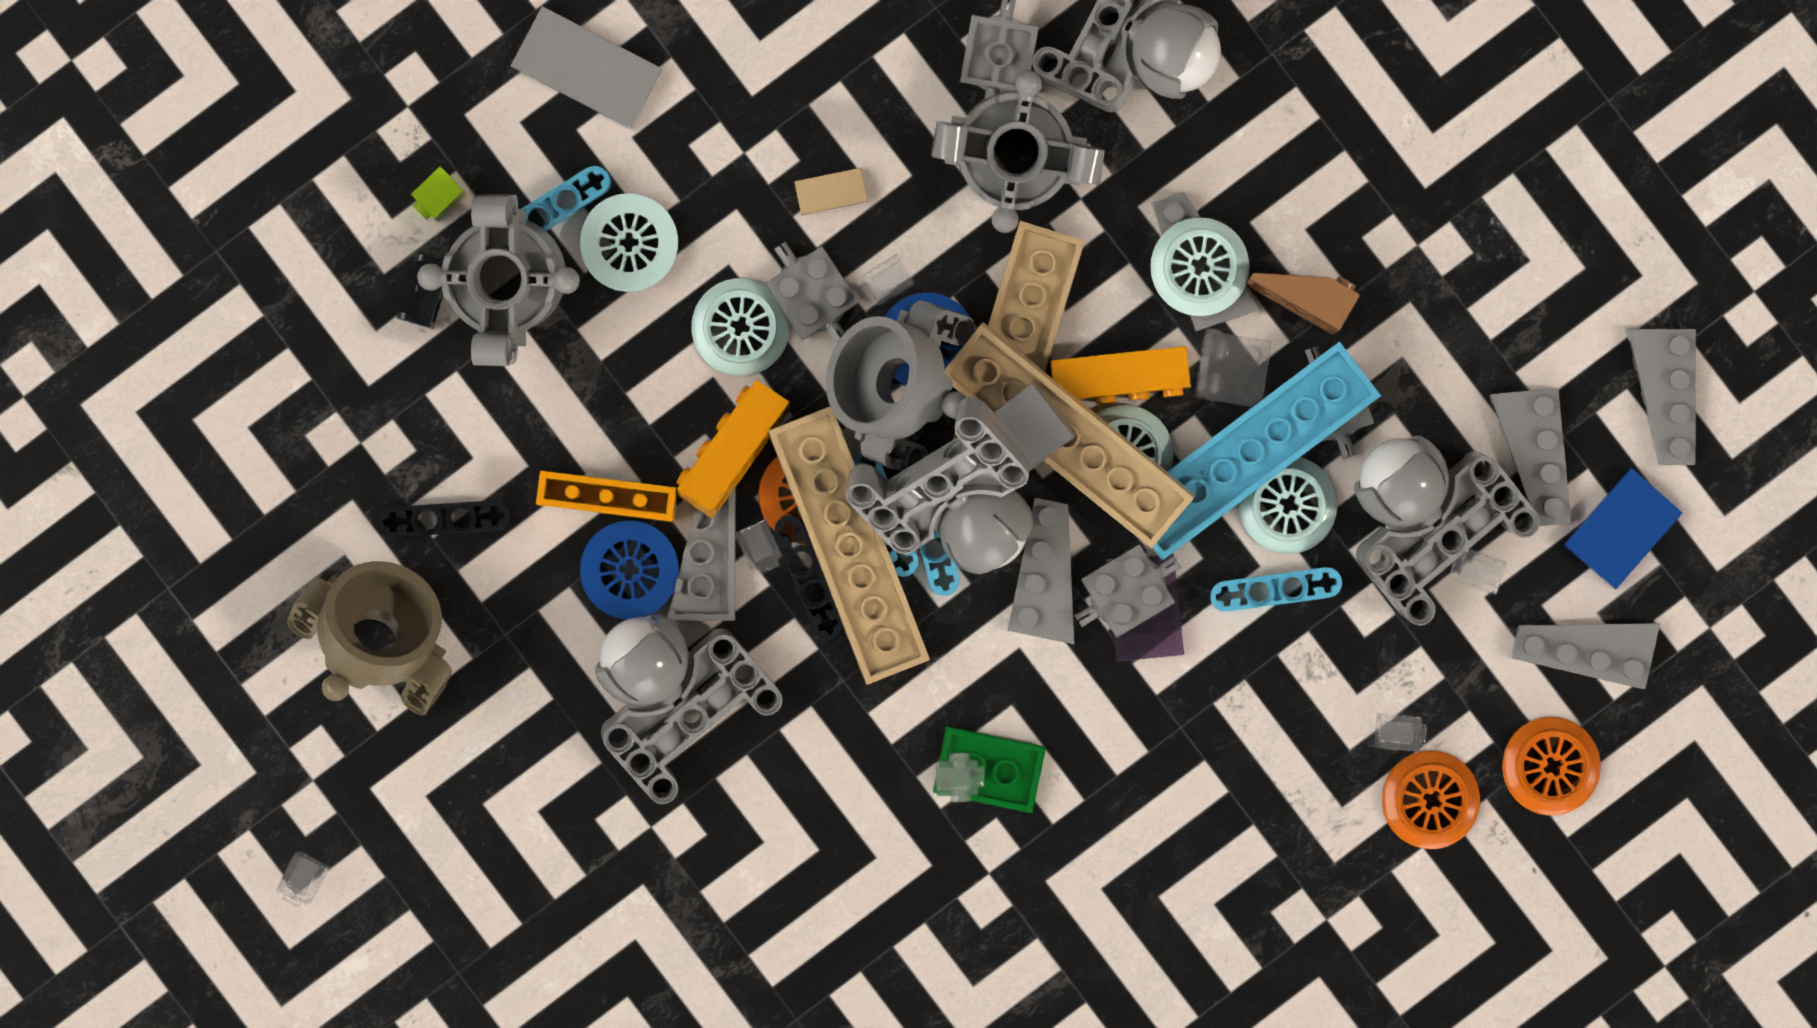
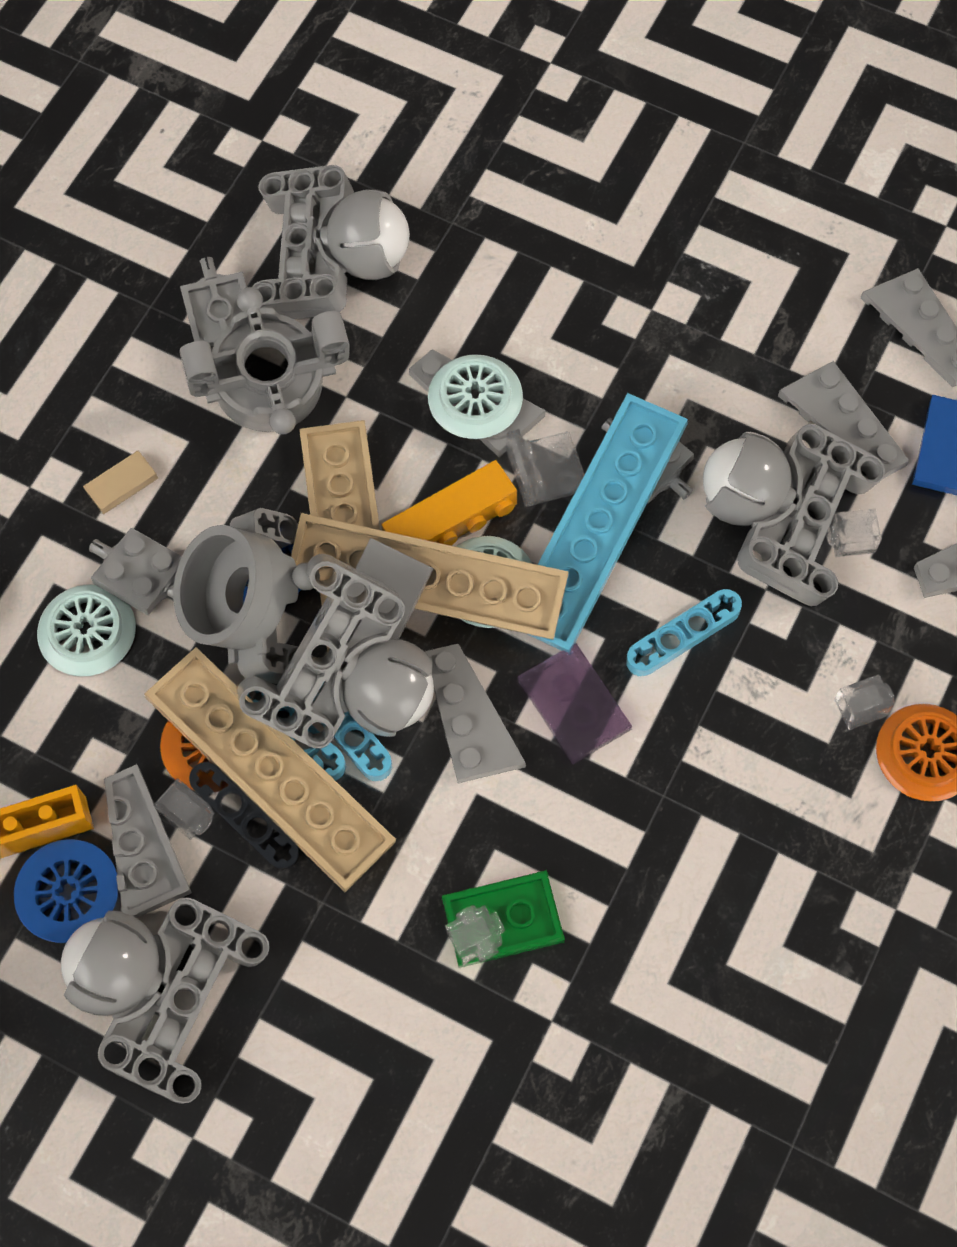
camera: 20 degrees left, 20 degrees down
(733, 448) = (118, 732): light orange brick -> none
(886, 281) = (199, 518): clear brick -> none
(1128, 591) = (551, 690): light grey plate -> none
(1302, 540) = (666, 589): light aqua piece -> none
(1316, 299) = (577, 375): medium nougat slope -> none

